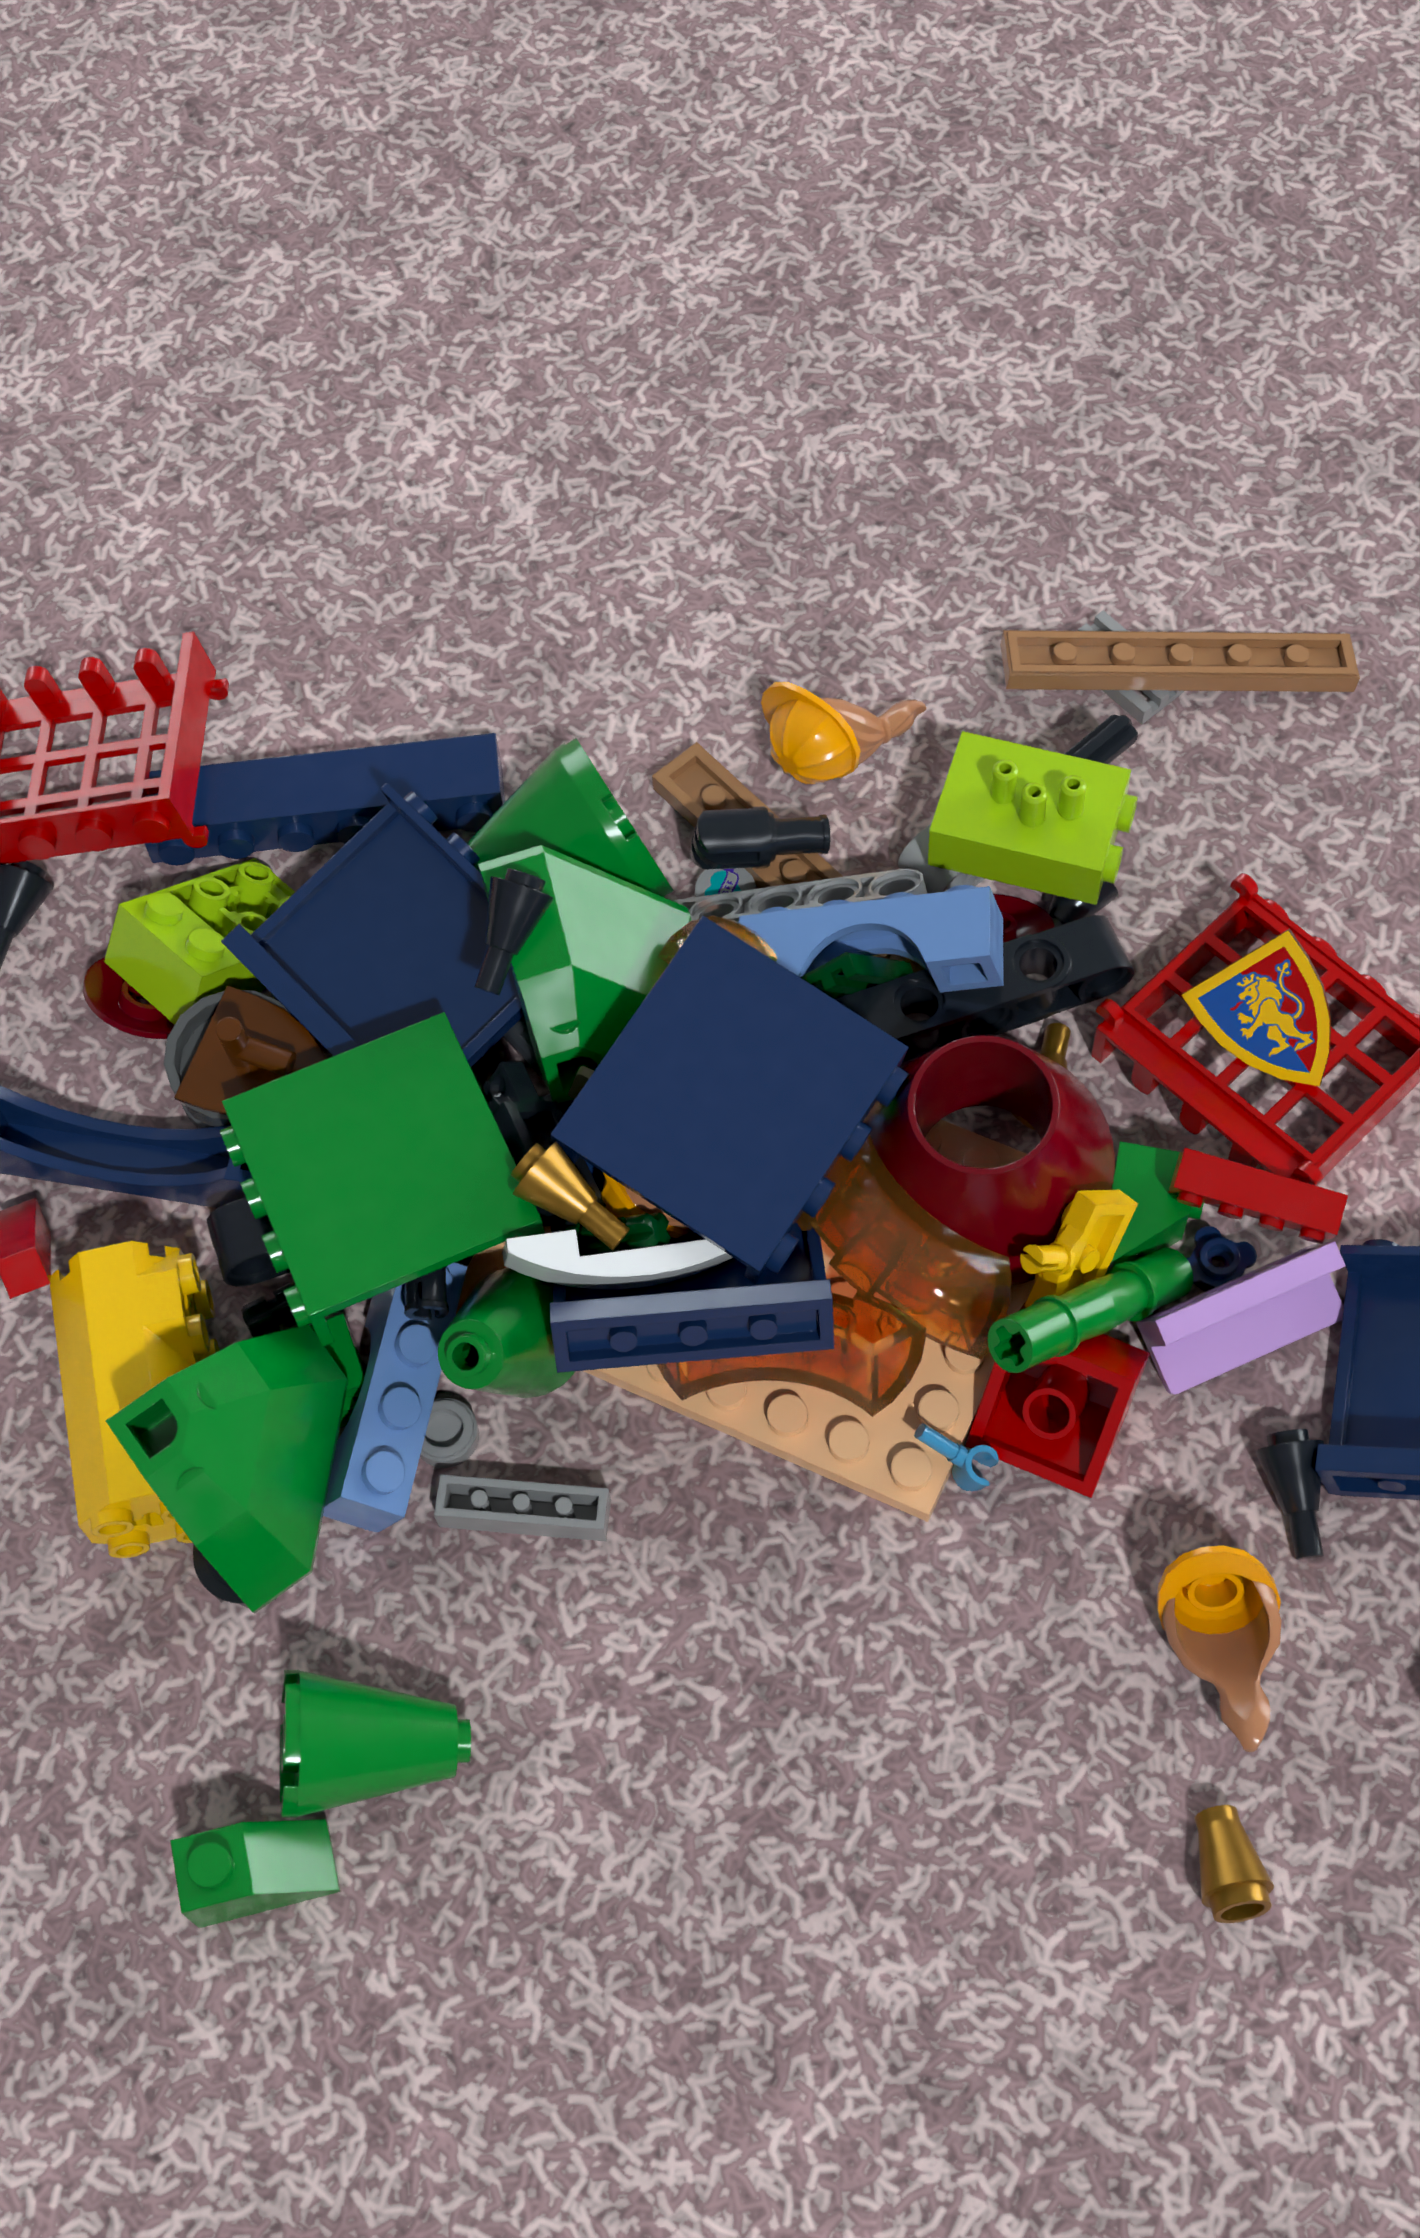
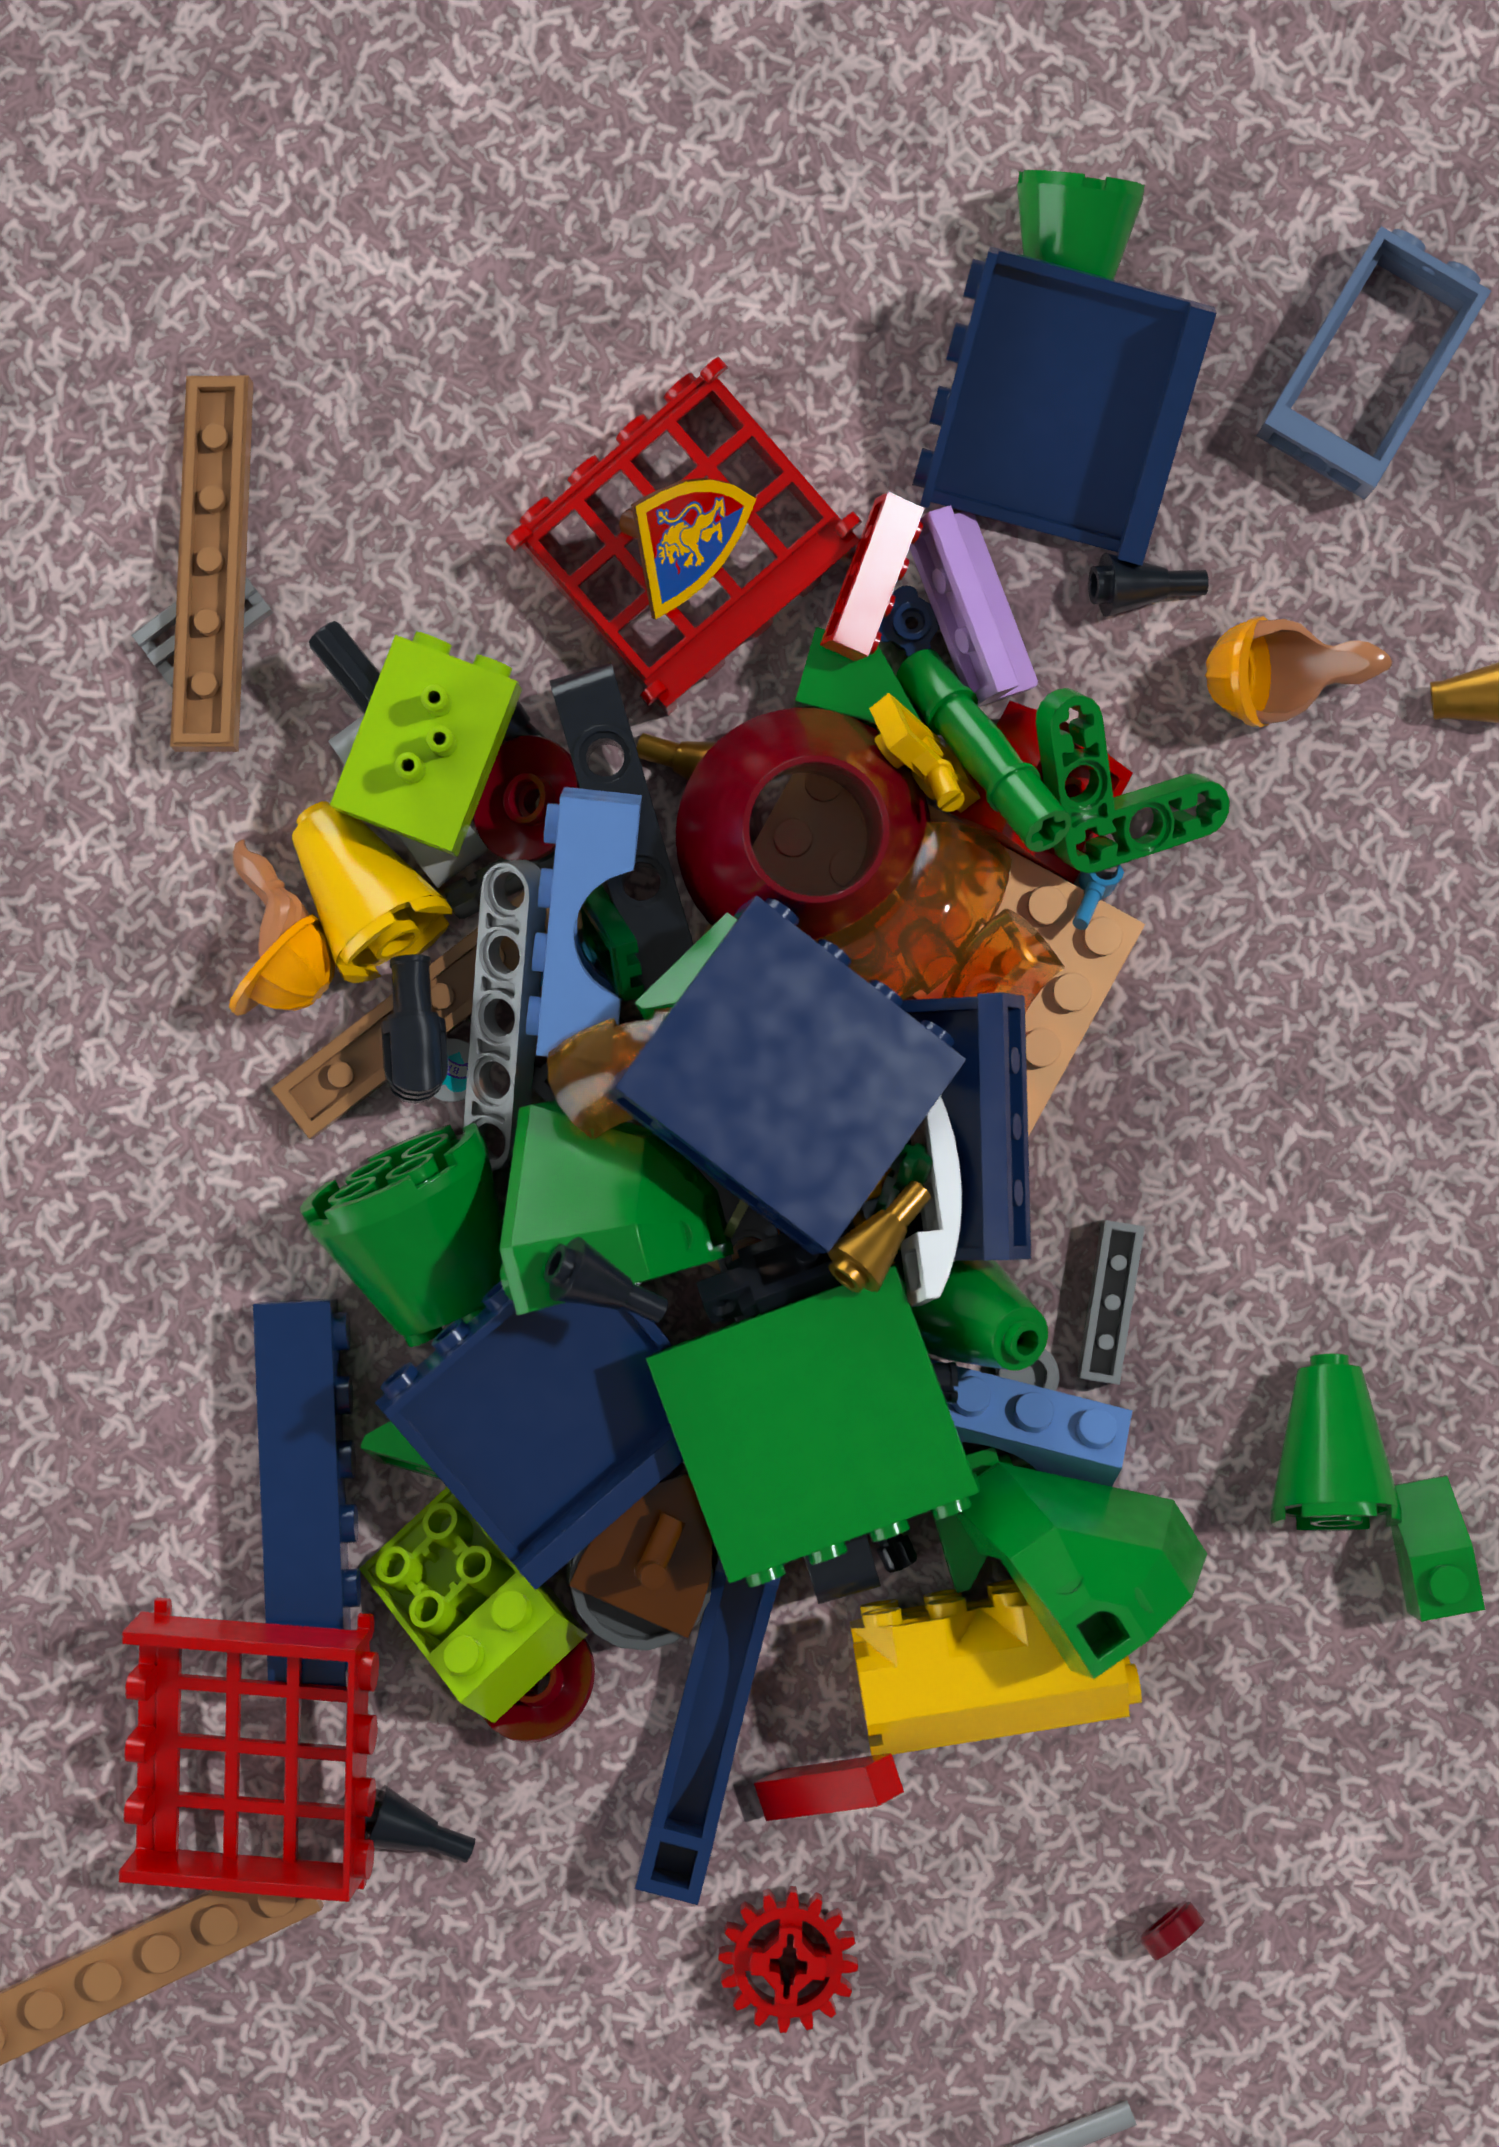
camera: 90 degrees left, 25 degrees up
(876, 798) = (364, 893): none -> yellow cone
(1041, 1433) = (1096, 806): none -> green beam

